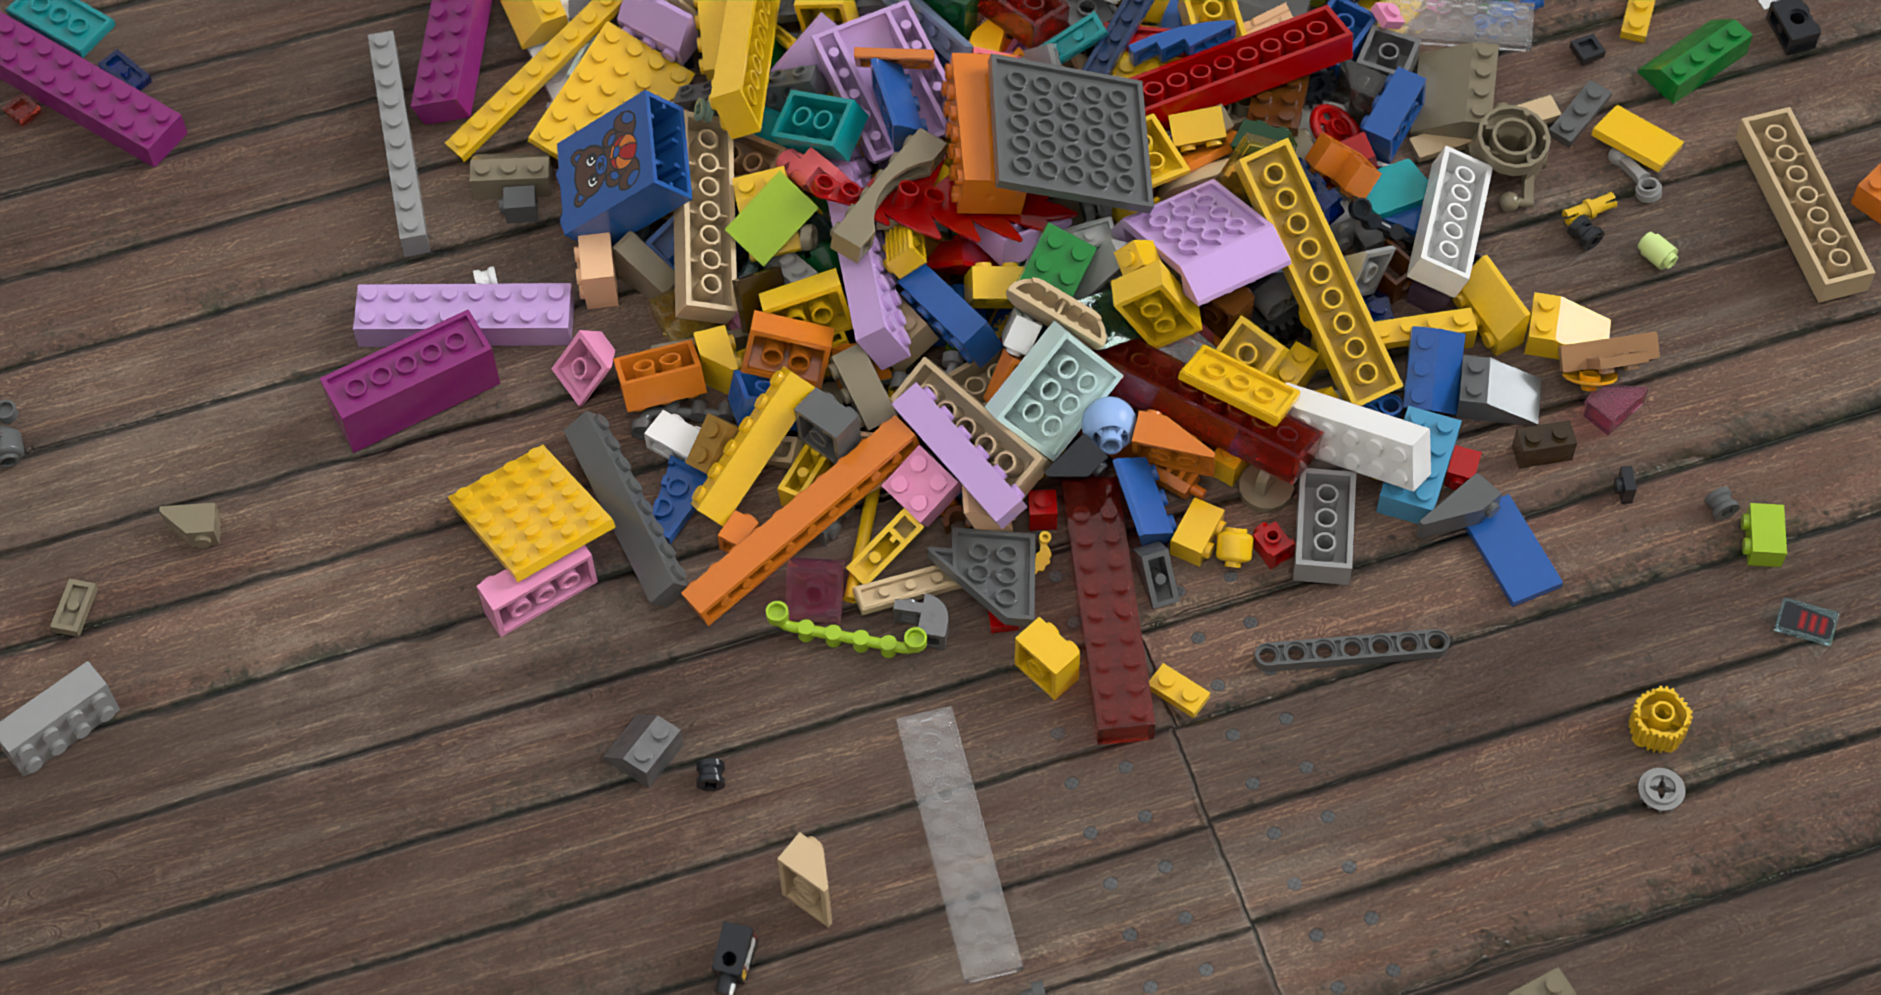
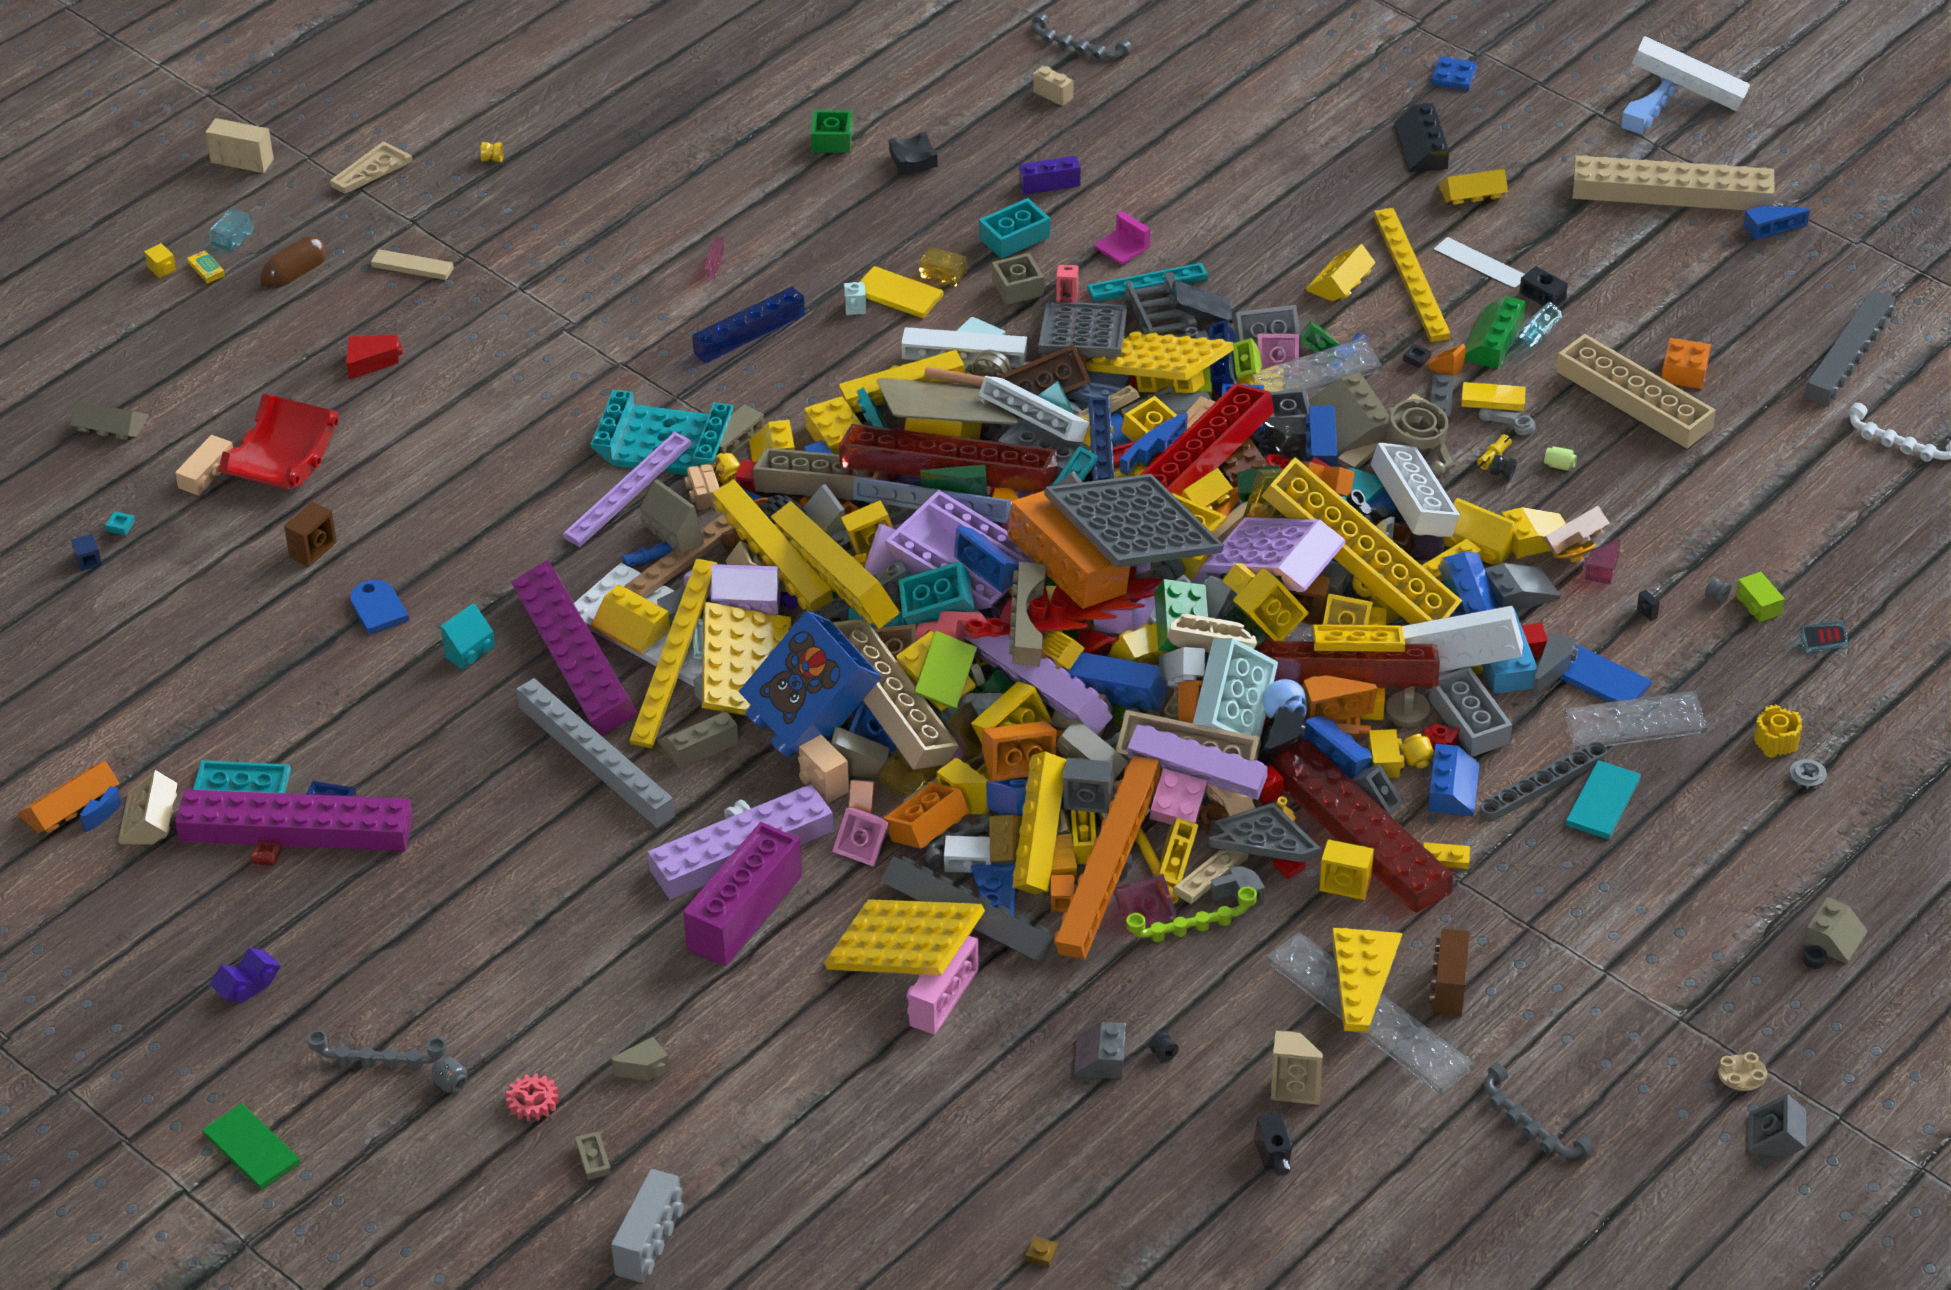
camera: 30 degrees left, 15 degrees down
(64, 511) = (532, 1097): none -> coral gear
(420, 953) = (1041, 1252): none -> pearl gold plate
(519, 204) = (723, 755): dark grey brick -> none
(623, 318) = (862, 795): none -> slope
(703, 110) = (848, 615): sand green bush -> none
(763, 497) = (1064, 857): none -> light orange brick
(906, 57) = (978, 520): orange tile -> none
(980, 789) = (1362, 969): none -> yellow wing
(1069, 843) = (1450, 973): none -> reddish brown brick
(1248, 603) = (1453, 781): none -> blue slope
(1387, 15) = (1271, 382): bright pink plate -> none
(1402, 707) = (1603, 799): none -> teal tile
(1509, 625) = (1636, 720): none -> clear plate
(1544, 444) = (1576, 603): dark brown brick -> none
(1617, 72) = (1449, 361): none -> orange slope
(1753, 71) = (1541, 324): none -> clear light blue brick

